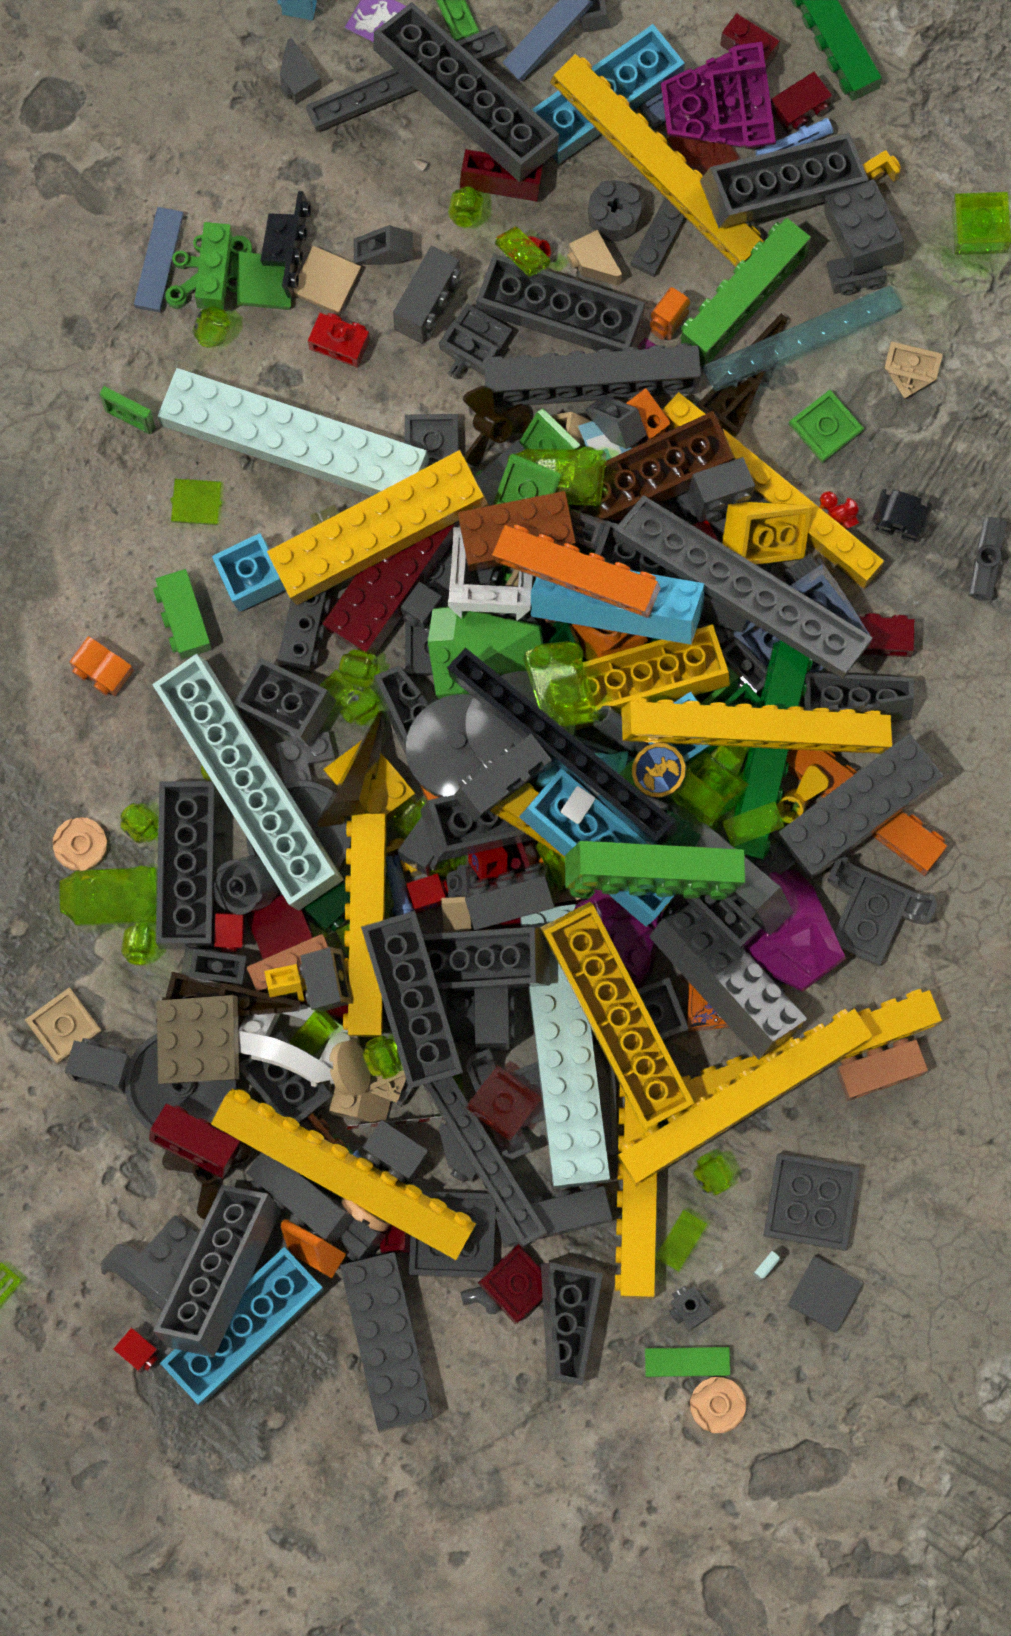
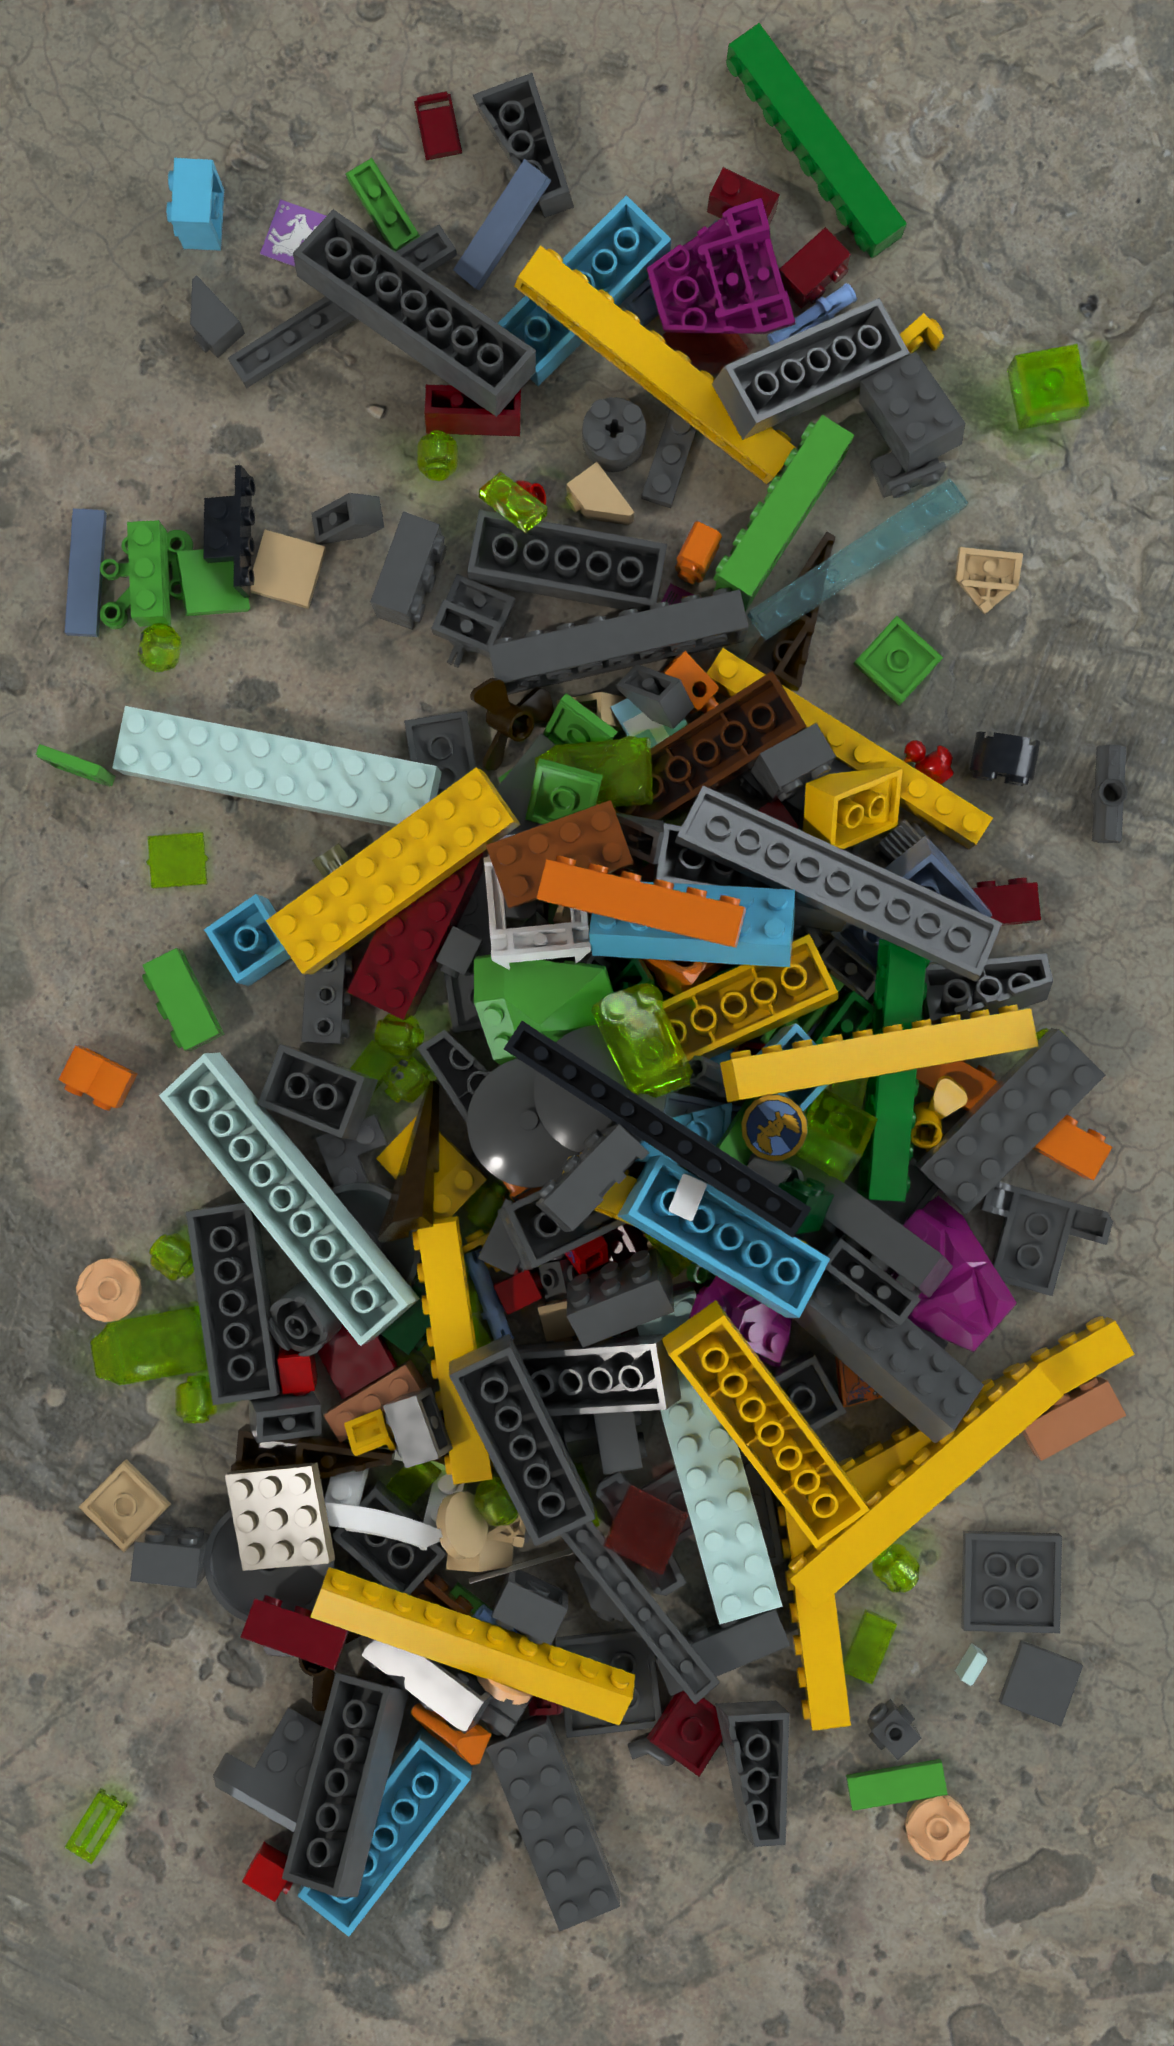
camera: 15 degrees left, 10 degrees up
(339, 339) = (313, 639): red brick -> none
(654, 869) = (794, 1269): bright green brick -> none
(753, 824) = (890, 1165): clear neon green plate -> none

